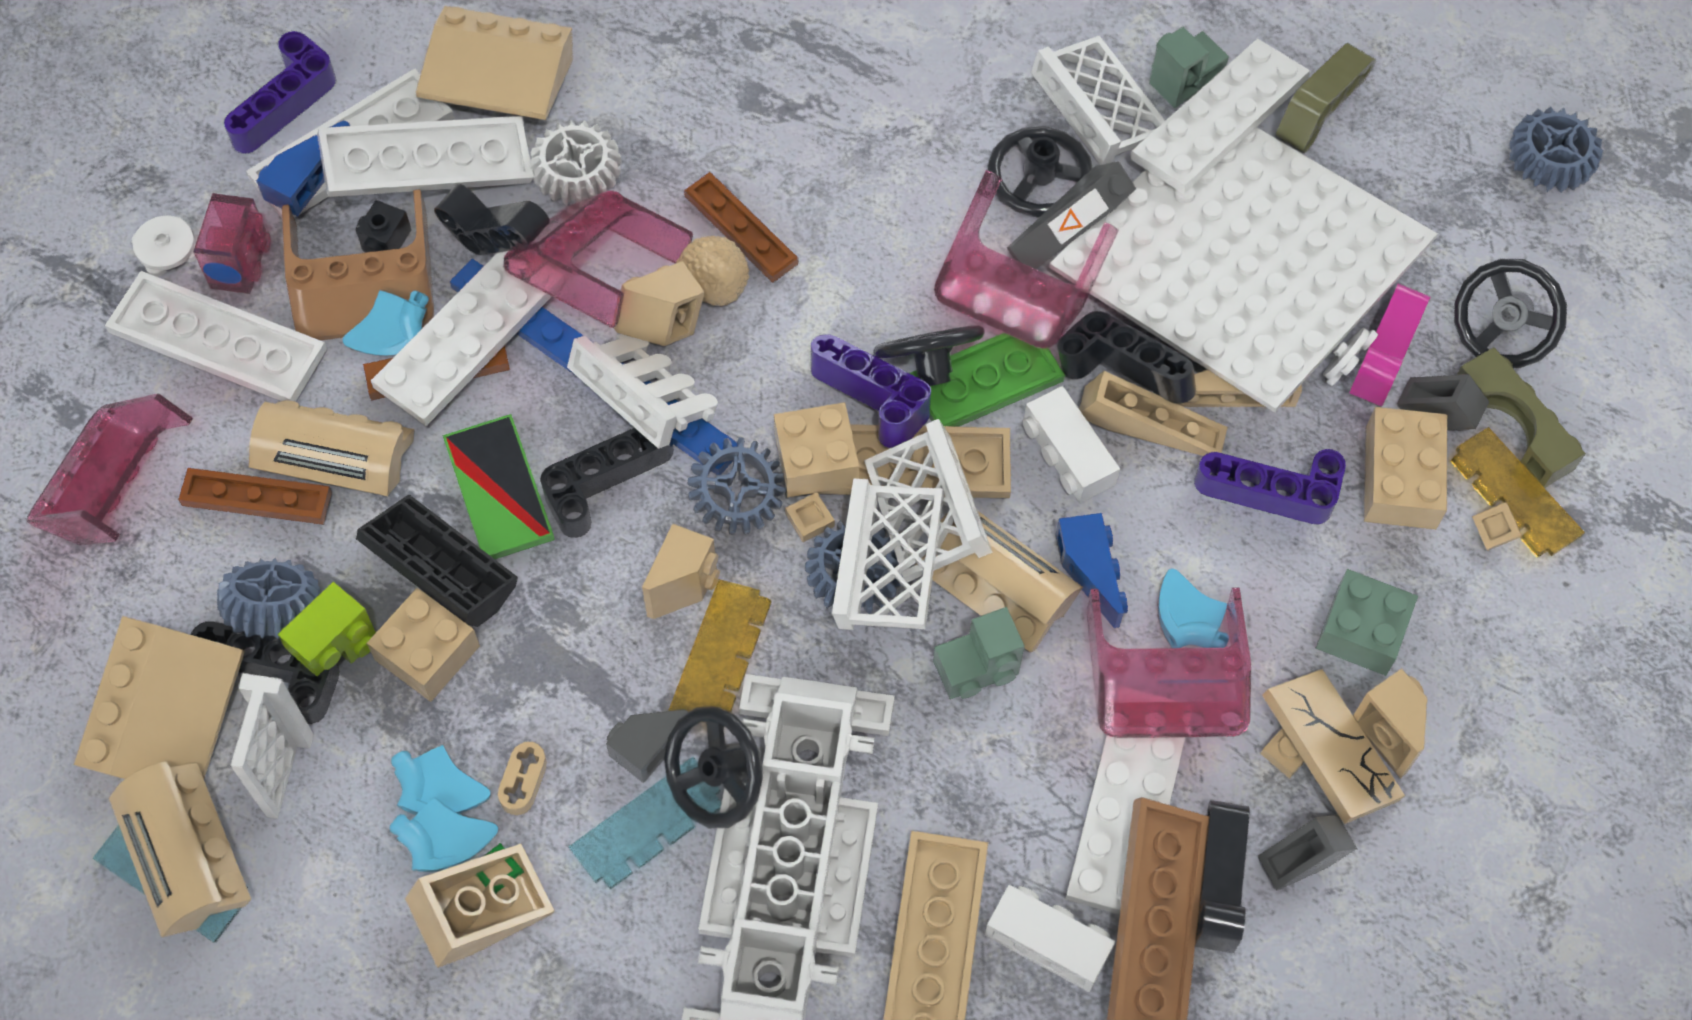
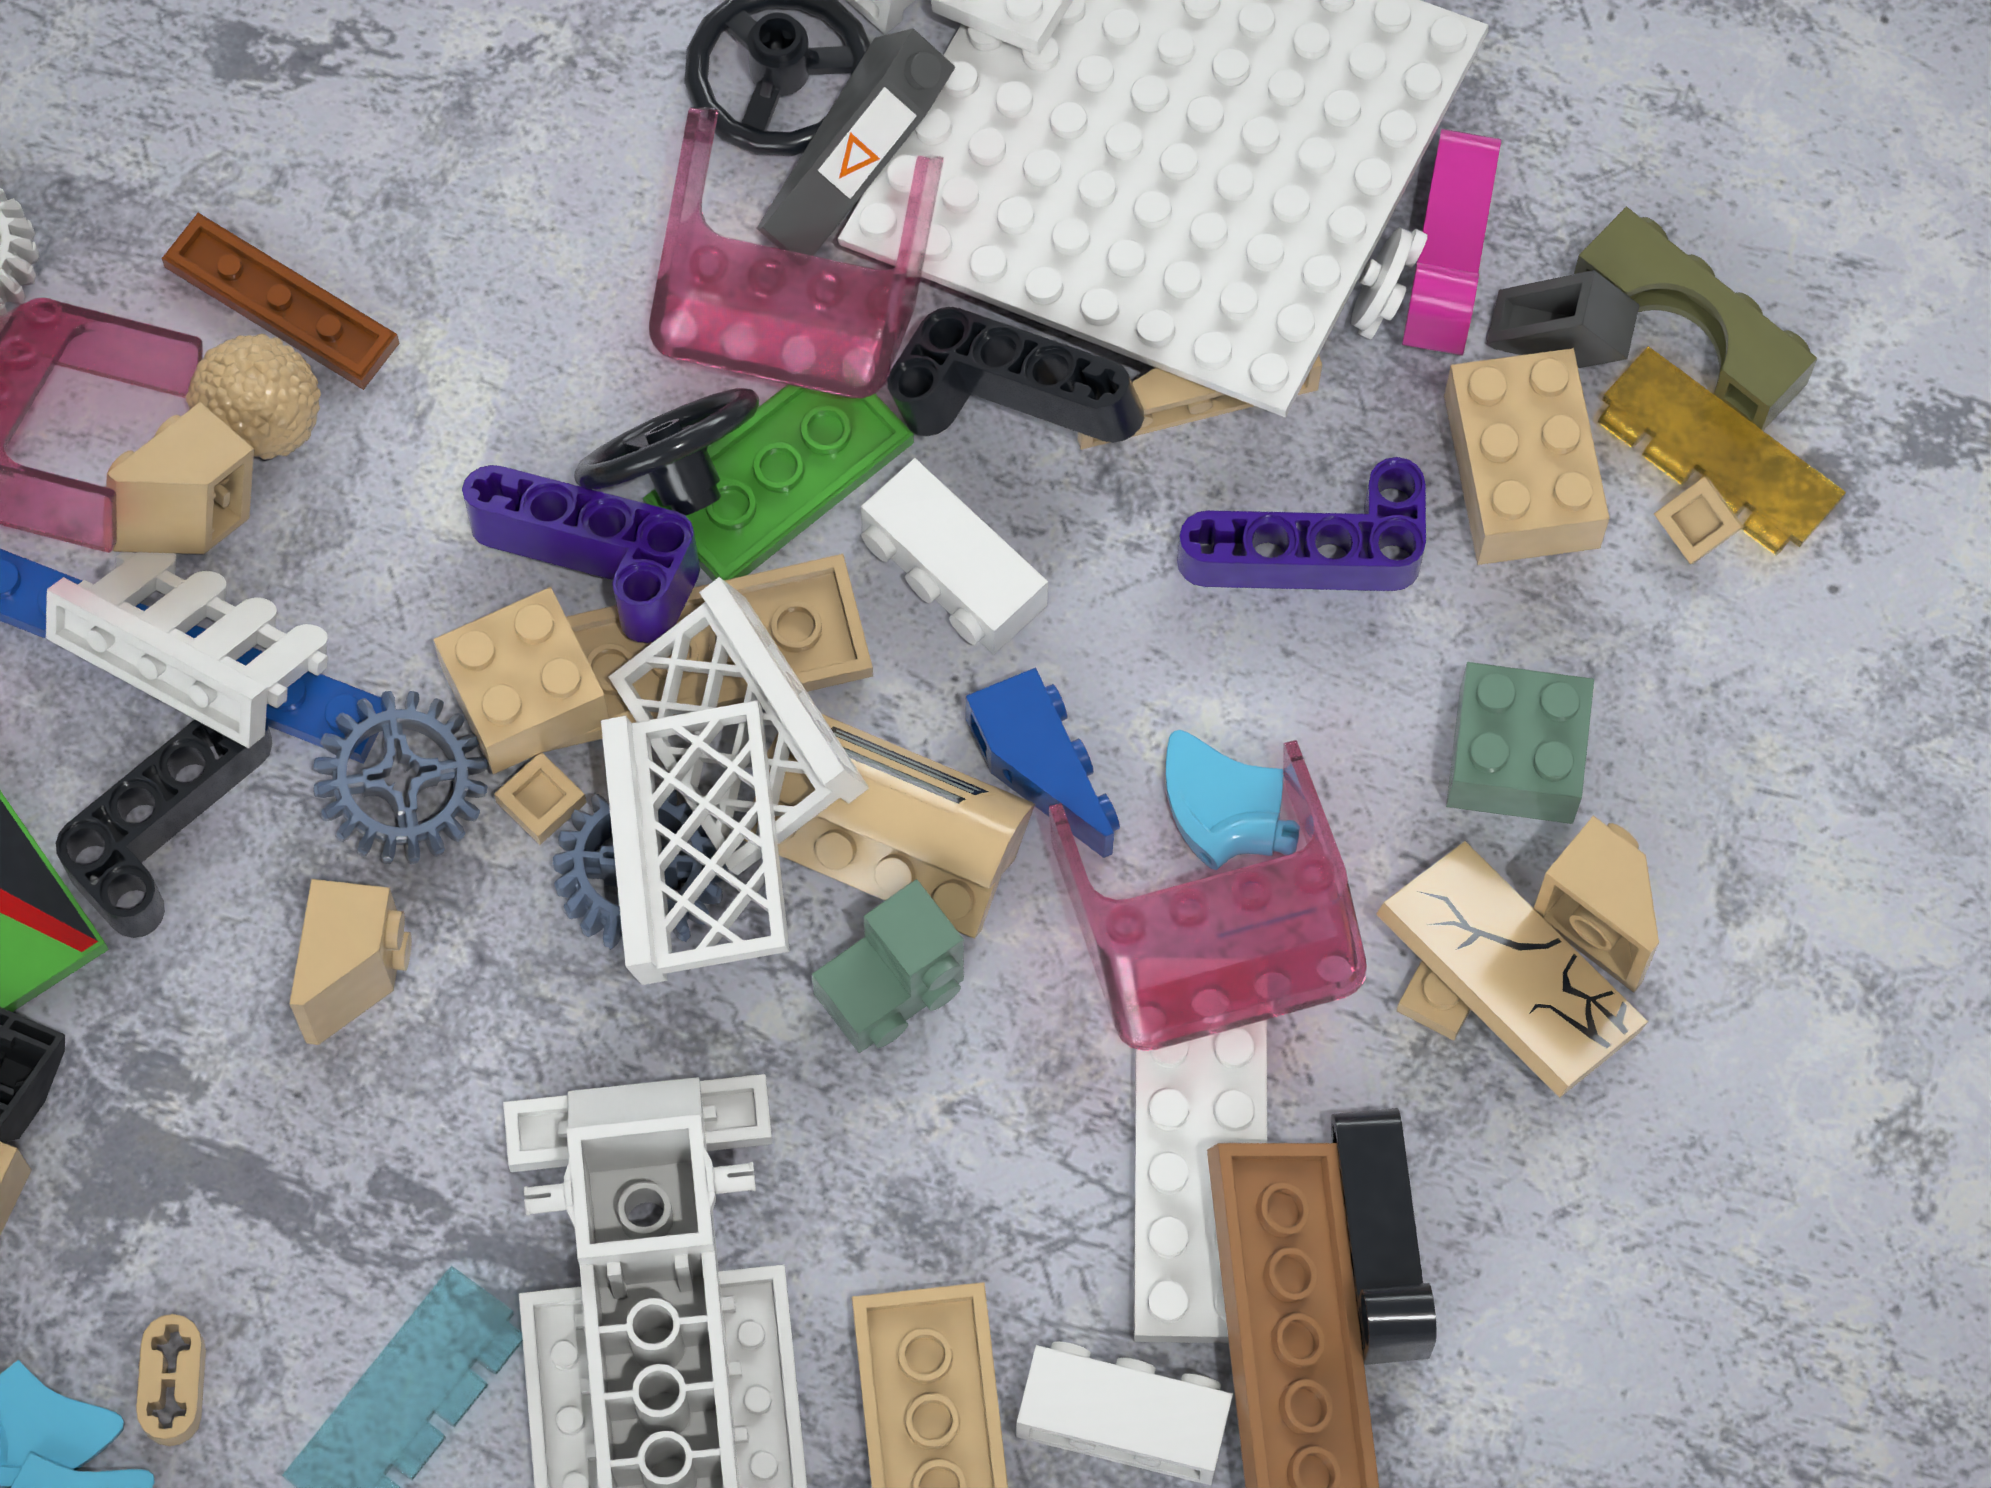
camera: 15 degrees left, 5 degrees up
(642, 741) = (366, 1260): dark grey slope -> none
(716, 766) = (499, 1276): black piece -> none
(720, 639) = (439, 1079): clear yellow windscreen -> none
(1149, 417) = (1071, 473): tan slope -> none
(1307, 851) = (1510, 1157): dark grey slope -> none
(1519, 303) = (1633, 150): black piece -> none

